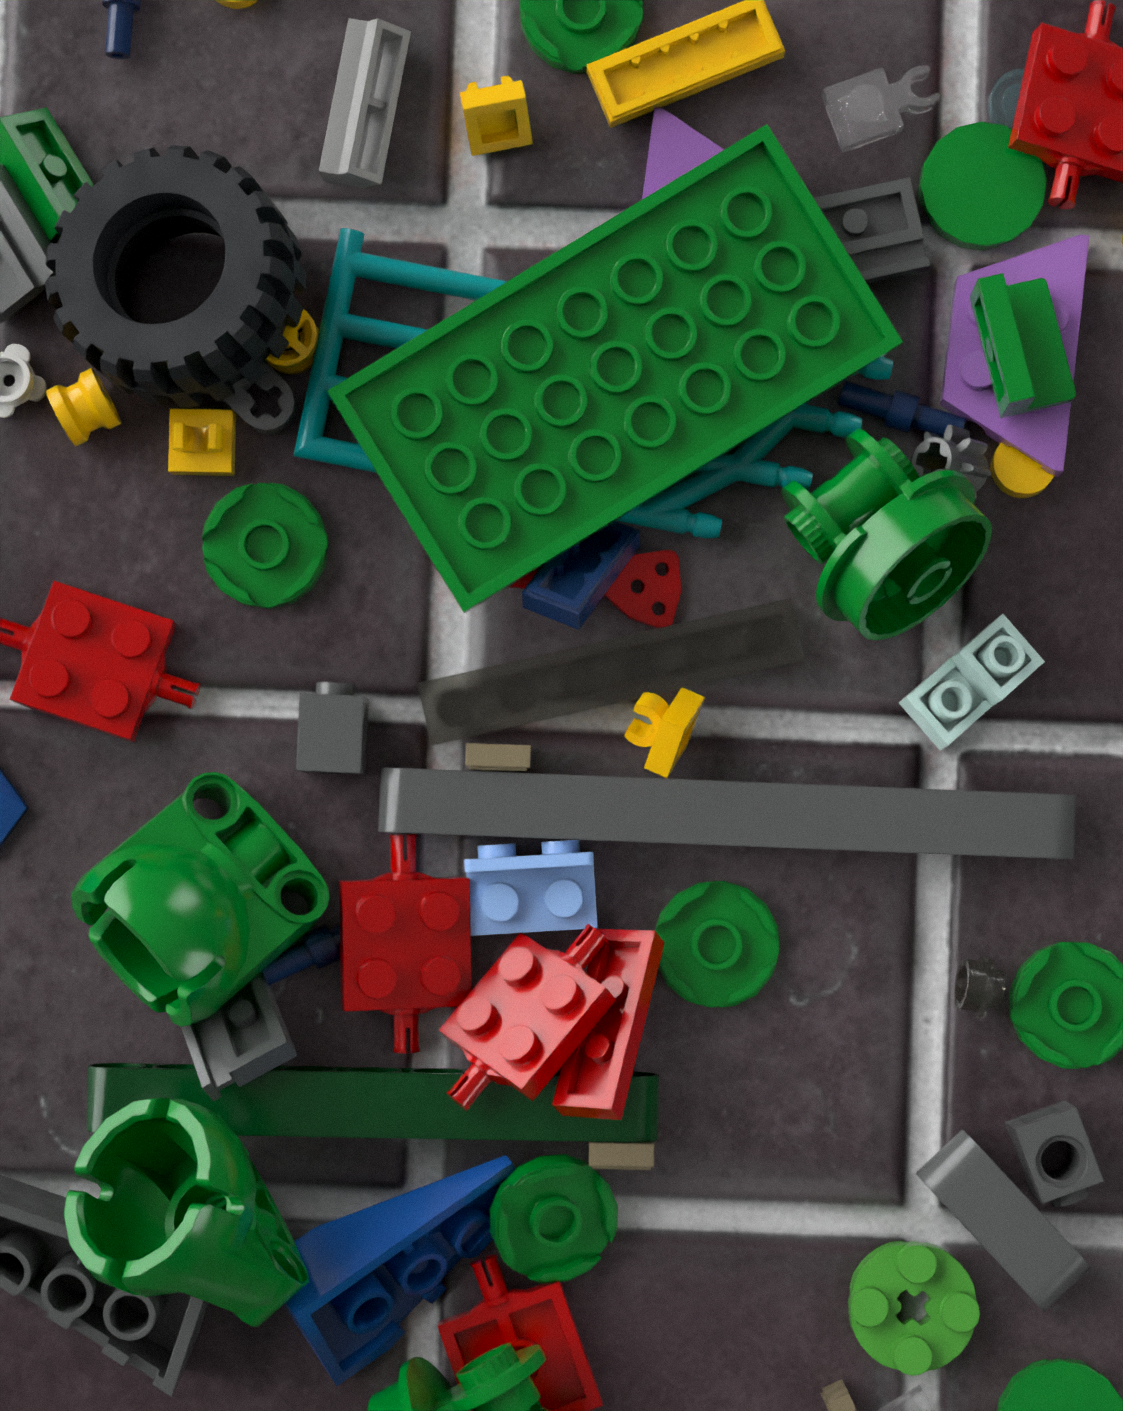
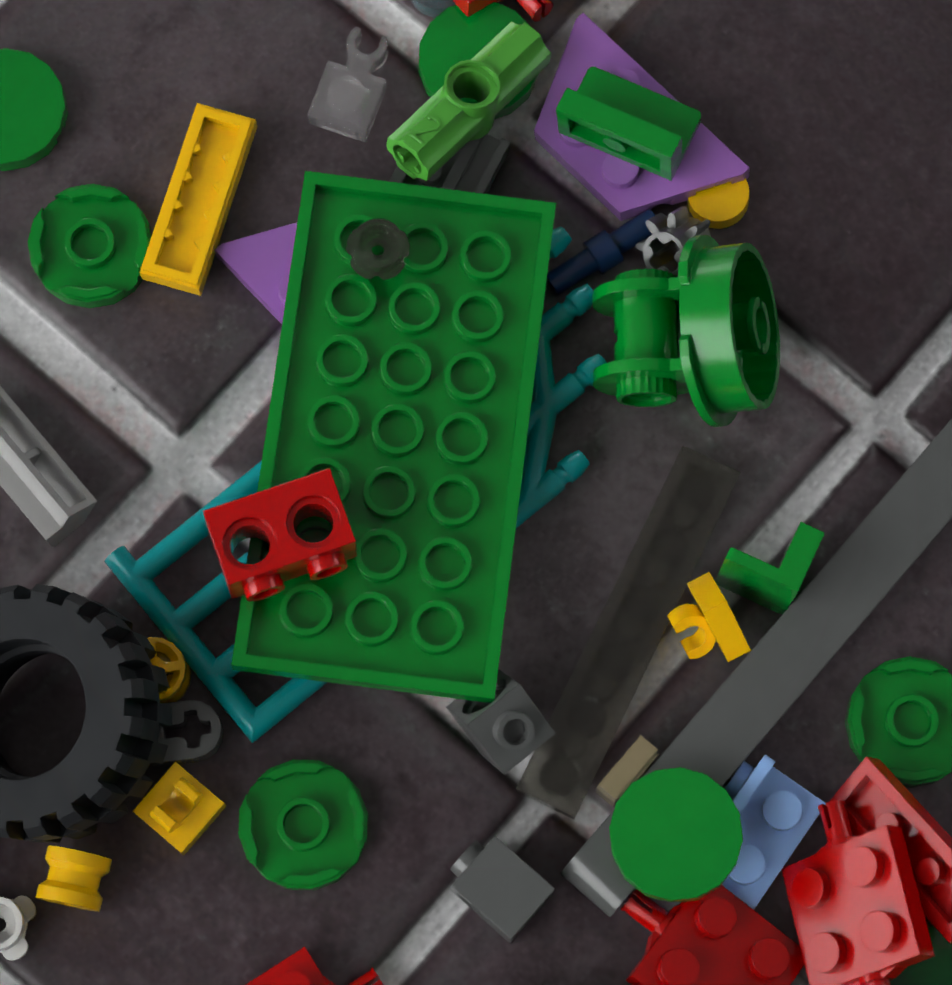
camera: 55 degrees left, 10 degrees down
(454, 639) = (505, 728): none -> dark grey brick
(463, 331) = (274, 519): none -> red brick
(472, 832) = (675, 835): none -> green tile
(496, 116) = (120, 371): yellow tile -> none
(580, 577) = (538, 594): dark blue plate -> none
(654, 589) = (564, 574): red piece -> none
(746, 761) = (769, 584): none -> green panel
(758, 221) = (377, 233): none -> clear smoke plate
(969, 206) = (447, 122): none -> bright green piece
(971, 682) = (856, 364): light aqua slope -> none

